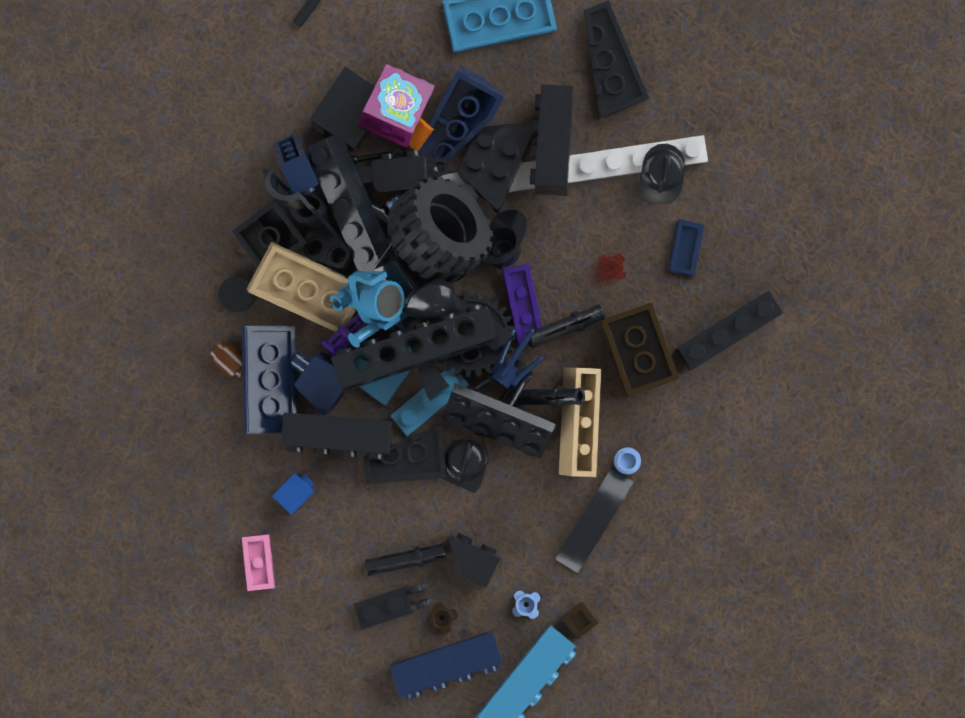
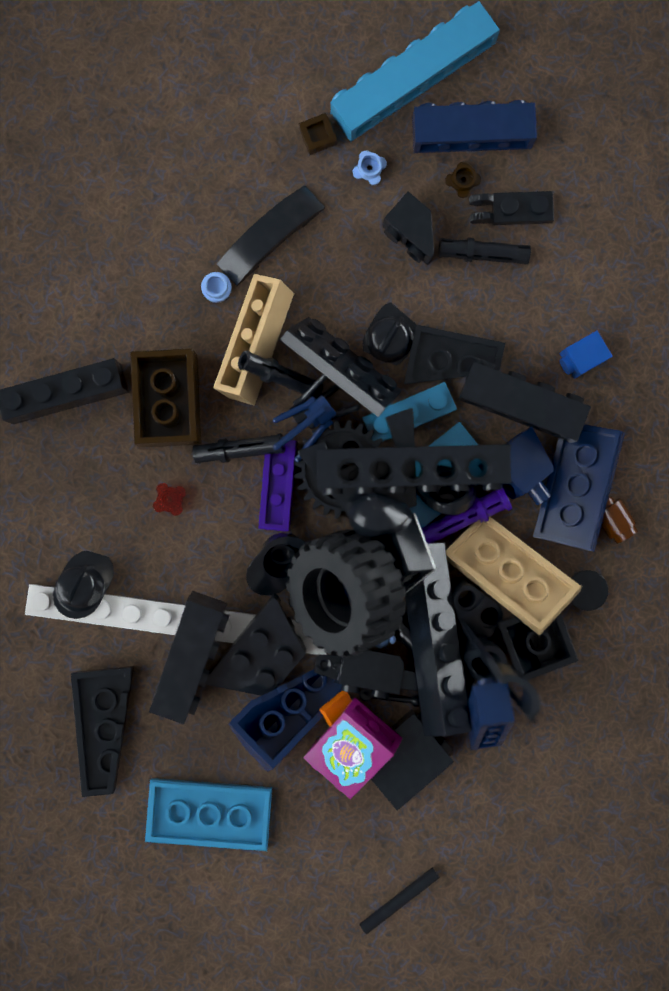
camera: 165 degrees left, 0 degrees up
(258, 562) = (643, 293): bright pink plate -> none
(377, 302) = (441, 535): dark azure piece -> none
(686, 248) = (83, 497): dark blue tile -> none

